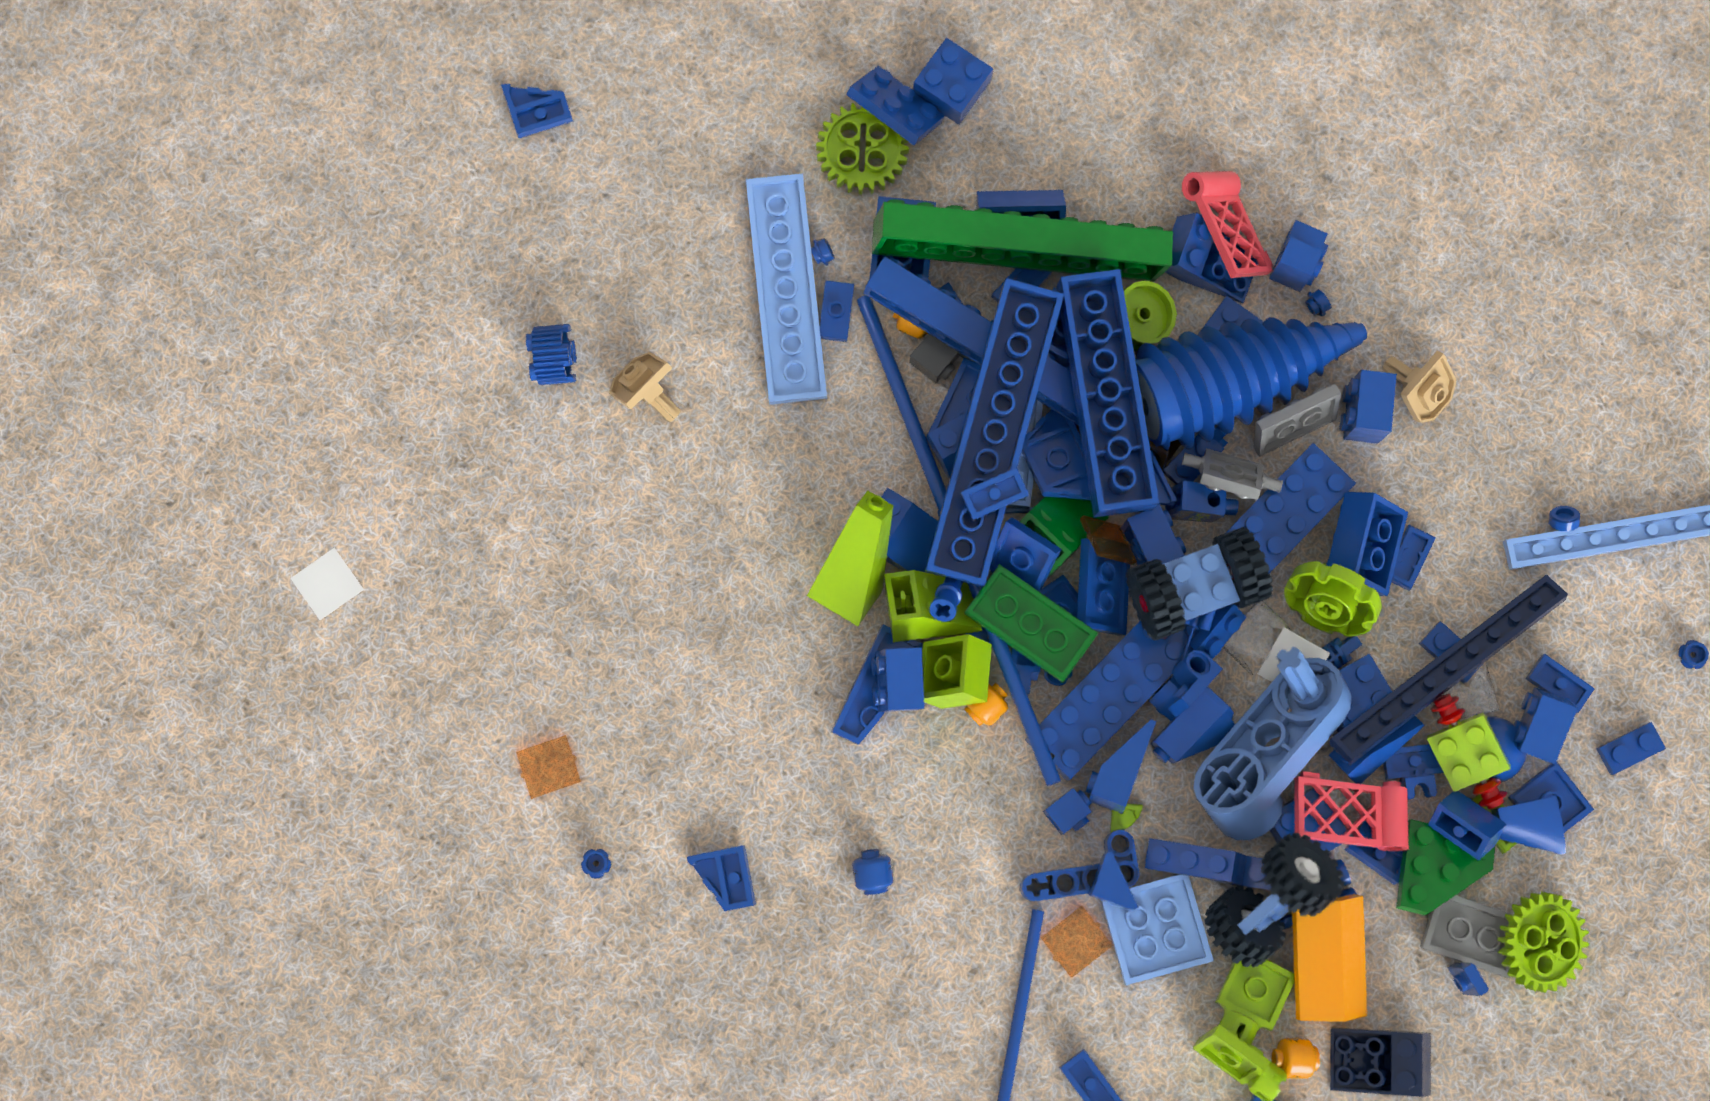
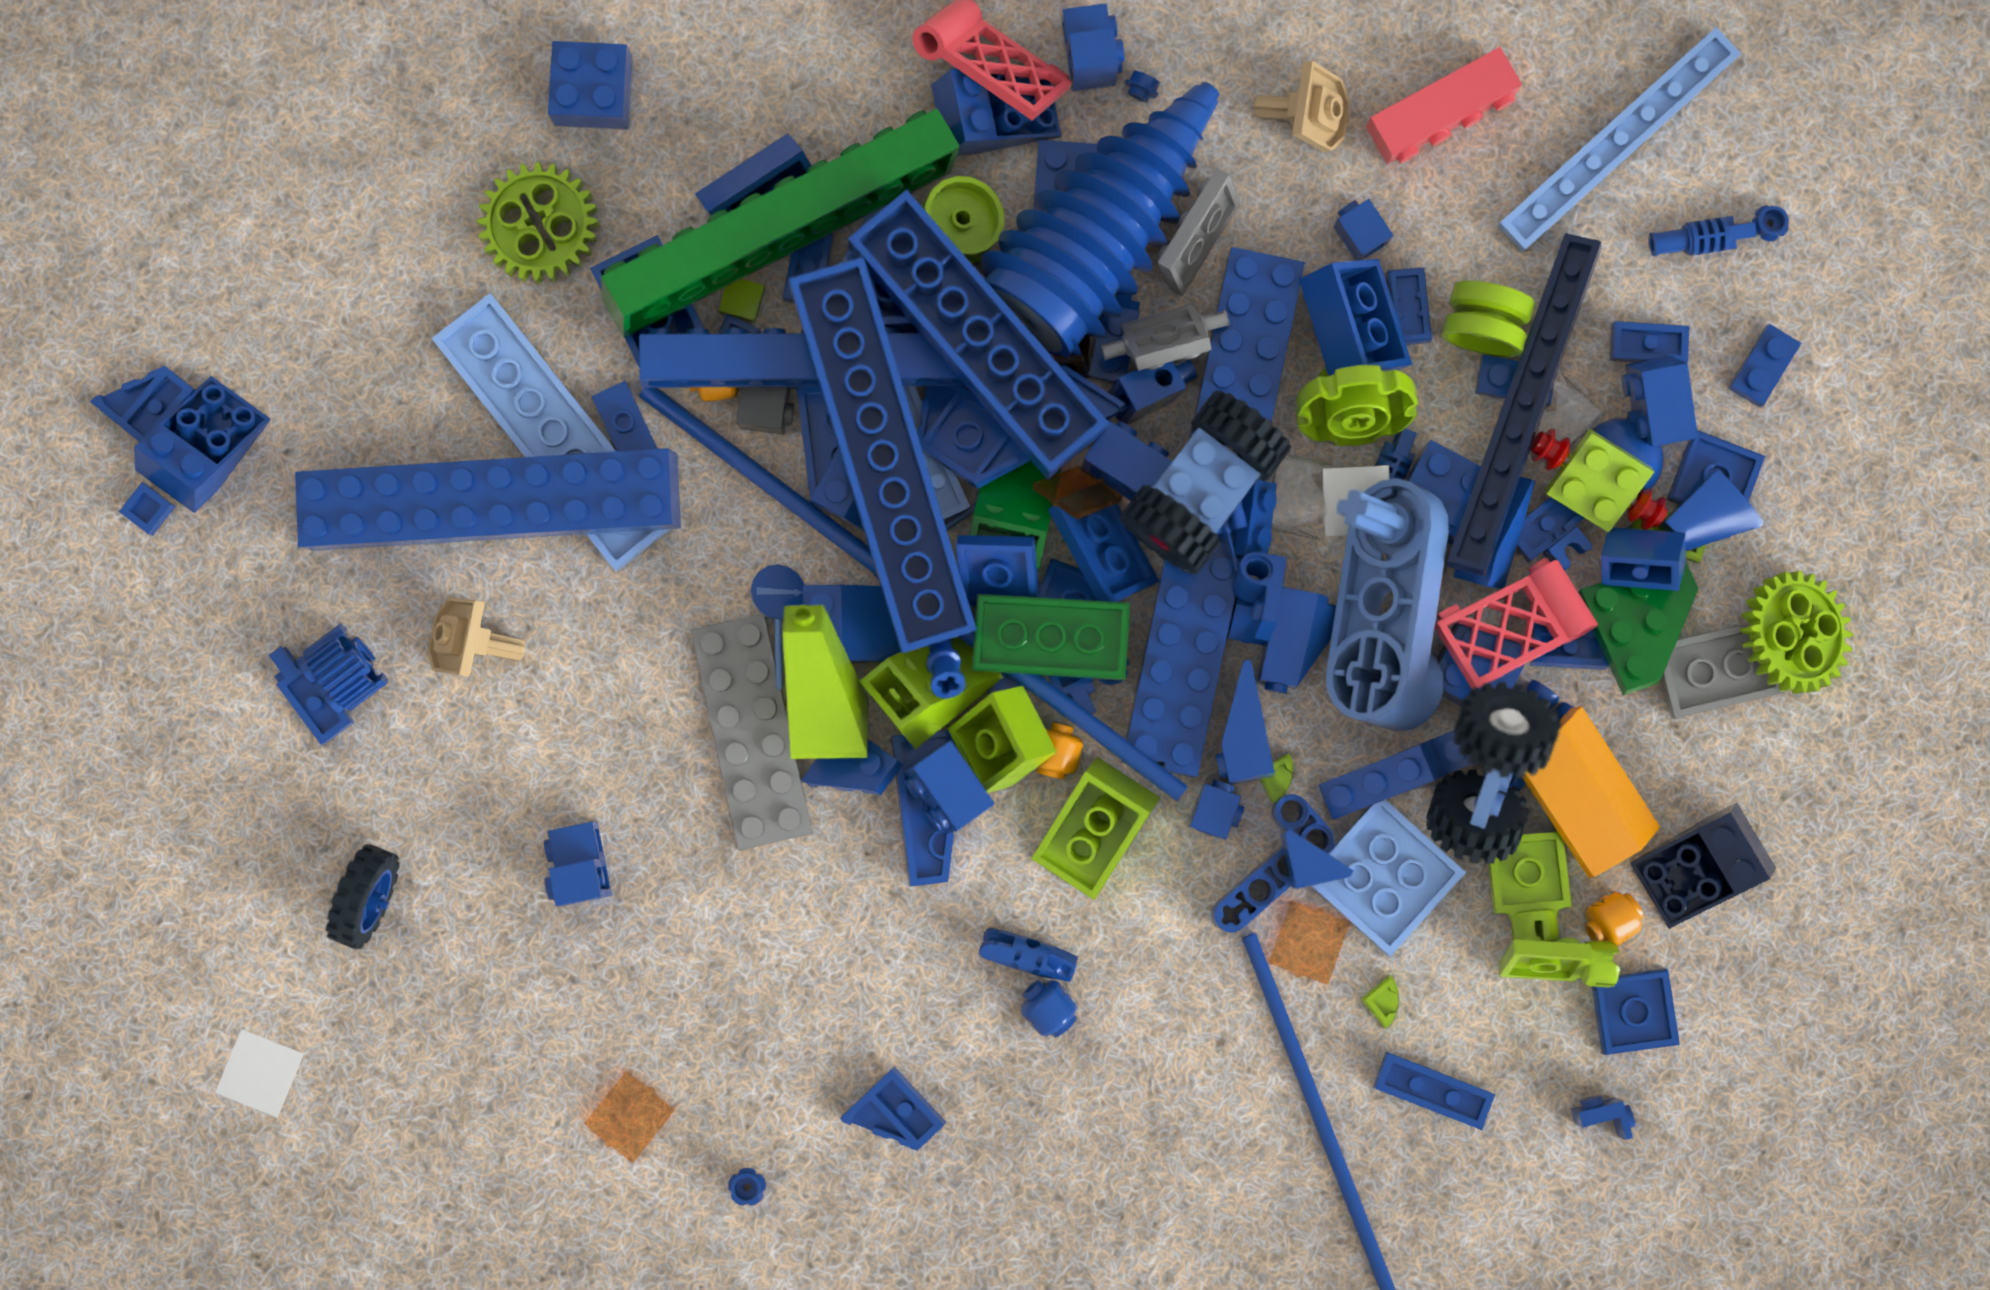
camera: 30 degrees left, 5 degrees up
(470, 508) = (362, 896): none -> black wheel
(492, 175) = (147, 508): none -> blue plate
(517, 360) = (308, 698): none -> blue hinge
(552, 154) = (199, 443): none -> blue slope
(622, 578) = (578, 865): none -> blue brick
(717, 304) = (488, 499): none -> blue brick
(791, 564) = (751, 732): none -> light grey plate
(822, 251) = (567, 366): blue plate -> none
(837, 630) = (849, 774): none -> blue wing
(860, 479) = (770, 592): none -> blue piece
(881, 828) = (1027, 955): none -> blue hinge
(895, 105) = (544, 152): blue plate -> none
(964, 279) = (742, 300): none -> lime tile
(980, 771) = (1095, 828): none -> lime slope
(994, 493) = (925, 525): blue plate -> none
(1102, 1013) = (1383, 1001): none -> lime tile
(1368, 406) = (1266, 169): blue brick -> none
(1409, 486) = (1362, 229): none -> blue brick
(1458, 597) = (1488, 318): none -> lime wheel
(1468, 979) = (1742, 722): blue plate -> none
(1515, 439) = (1444, 106): none -> coral brick
(1564, 518) = (1548, 160): blue tile -> none
(1639, 635) = (1701, 237): none -> blue hinge

